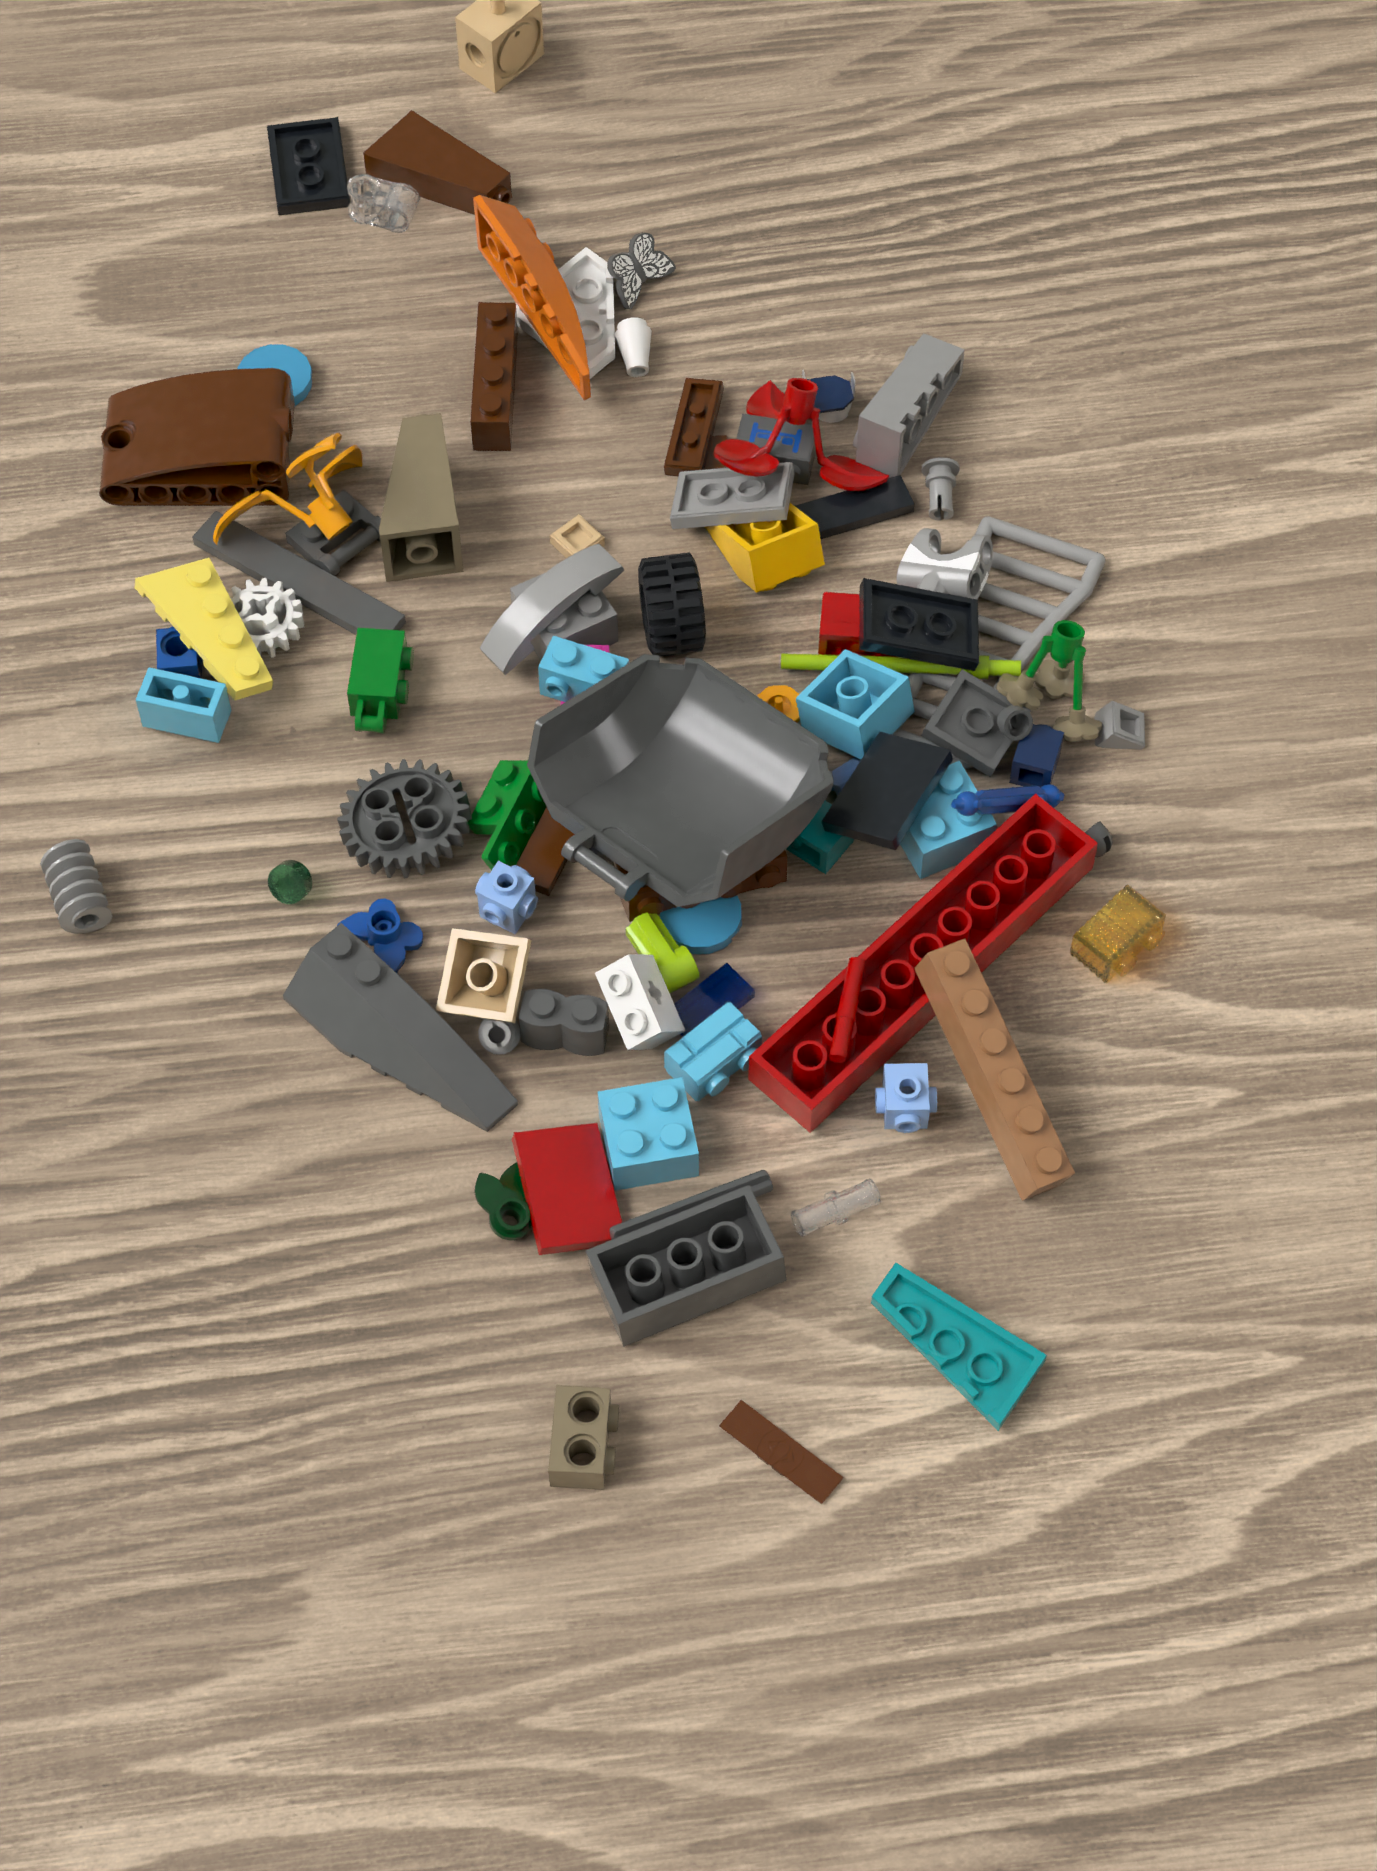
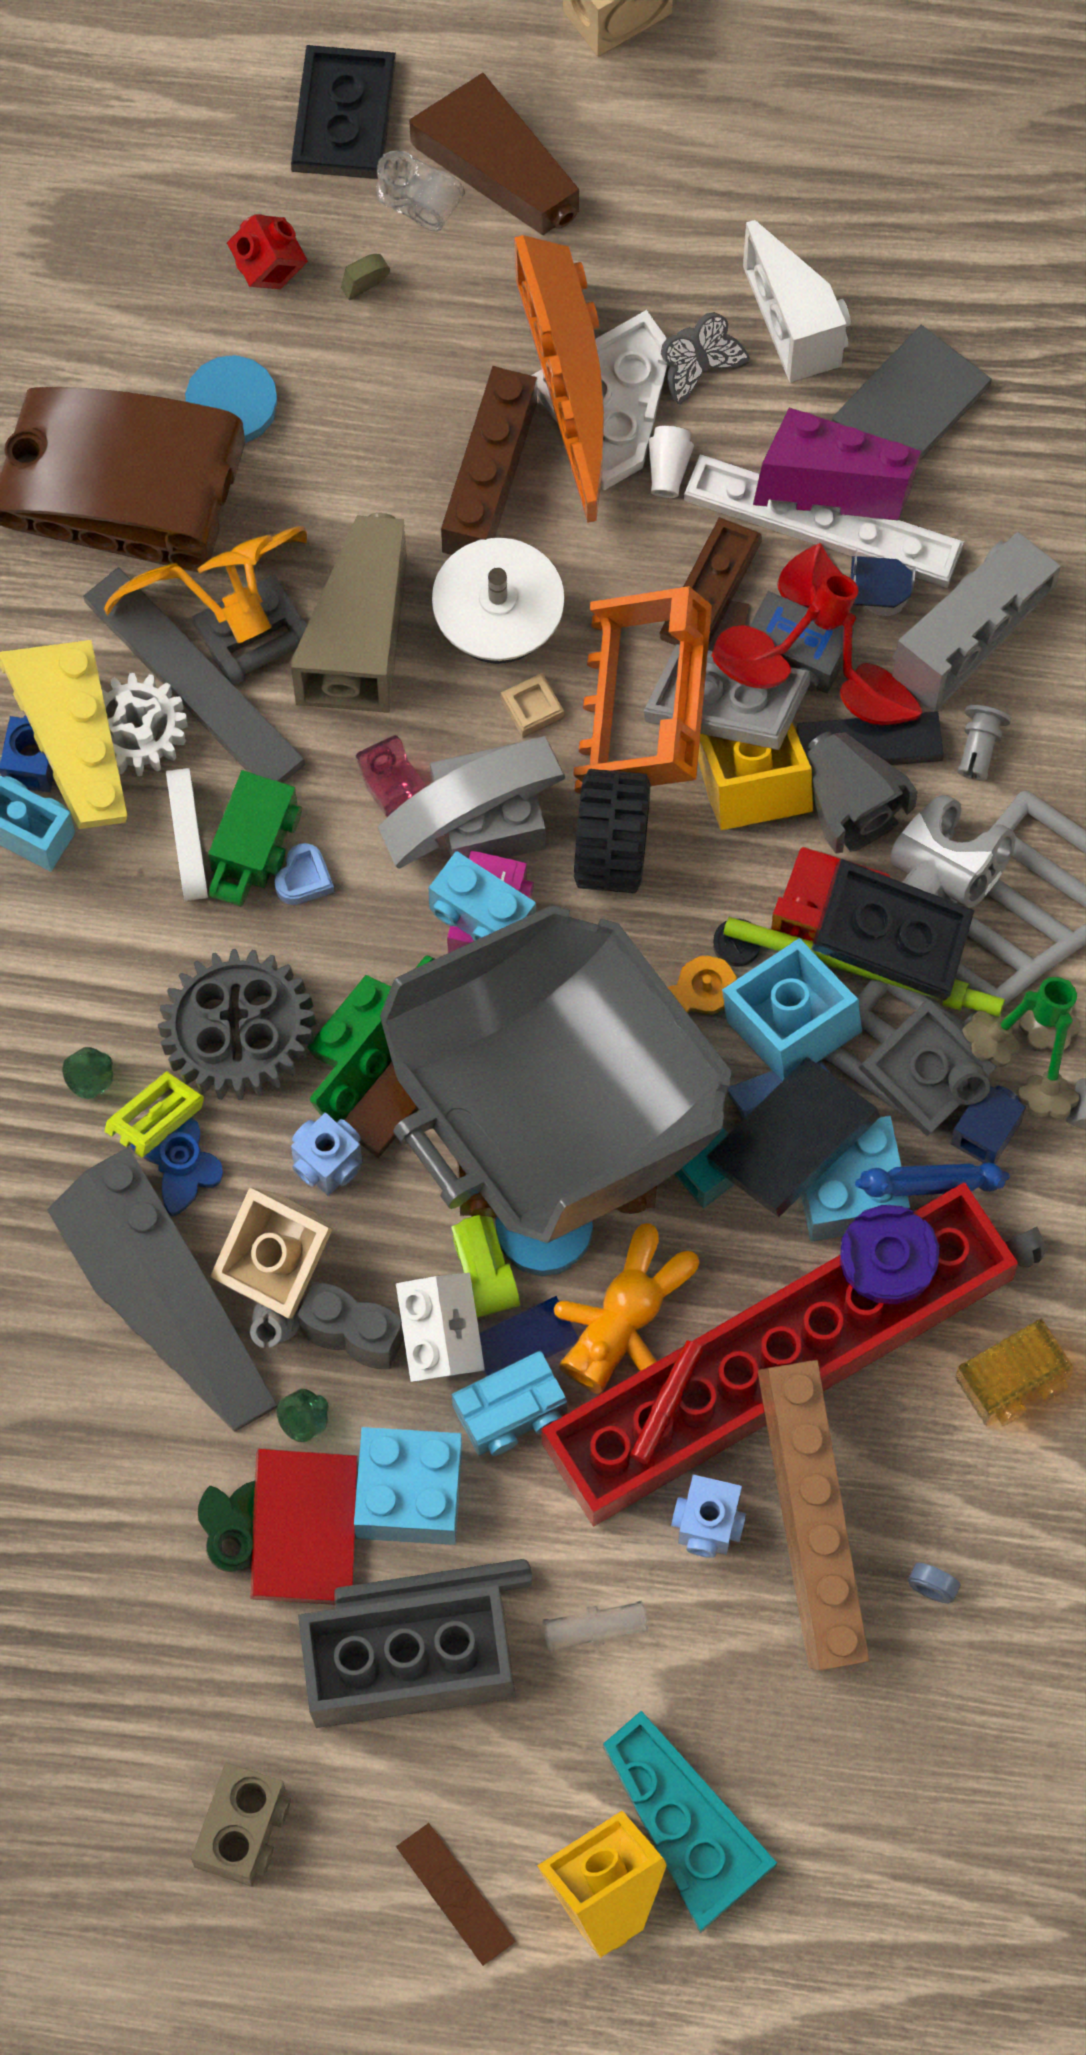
camera: 15 degrees right, 10 degrees up
(275, 265) = (267, 251): none -> red brick
(324, 689) = (187, 834): none -> white beam
(356, 269) = (364, 275): none -> olive tile
(361, 900) = (134, 1134): none -> neon yellow tile
(428, 701) = (304, 876): none -> light blue tile
(475, 609) = (389, 774): none -> clear pink bracket
(530, 466) = (498, 599): none -> white piece
(542, 1101) = (302, 1415): none -> clear green tile
(670, 434) = (678, 736): none -> orange hinge
(700, 216) = (796, 306): none -> white slope
(762, 363) = (732, 493): none -> white tile
(769, 319) = (836, 467): none -> magenta wedge
(789, 955) = (627, 1306): none -> light orange animal
(793, 678) = (733, 950): none -> black piece
(809, 271) = (915, 393): none -> dark grey tile
(857, 538) = (855, 791): none -> dark grey cone
(909, 1407) = (607, 1882): none -> yellow slope
(993, 858) = (889, 1254): none -> dark purple tile
(1105, 1107) = (933, 1583): none -> sand blue tile

